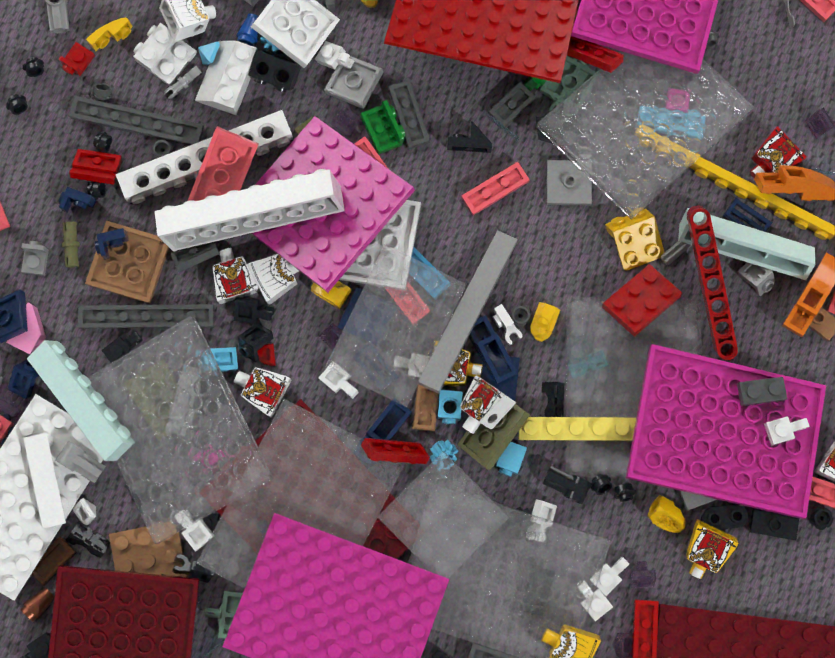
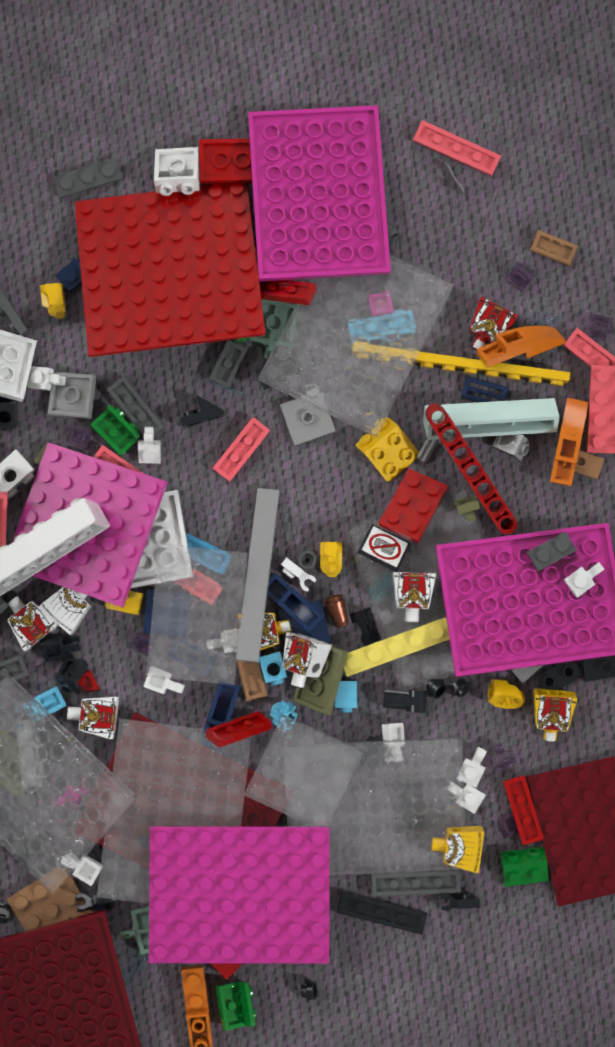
camera: 20 degrees left, 5 degrees up
(407, 156) = (149, 449): none -> white plate
(532, 374) = (337, 610): none -> copper cone
(600, 328) = (384, 547): none -> piece
(612, 381) = (413, 592): none -> torso
(694, 319) = (467, 506): none -> olive tile

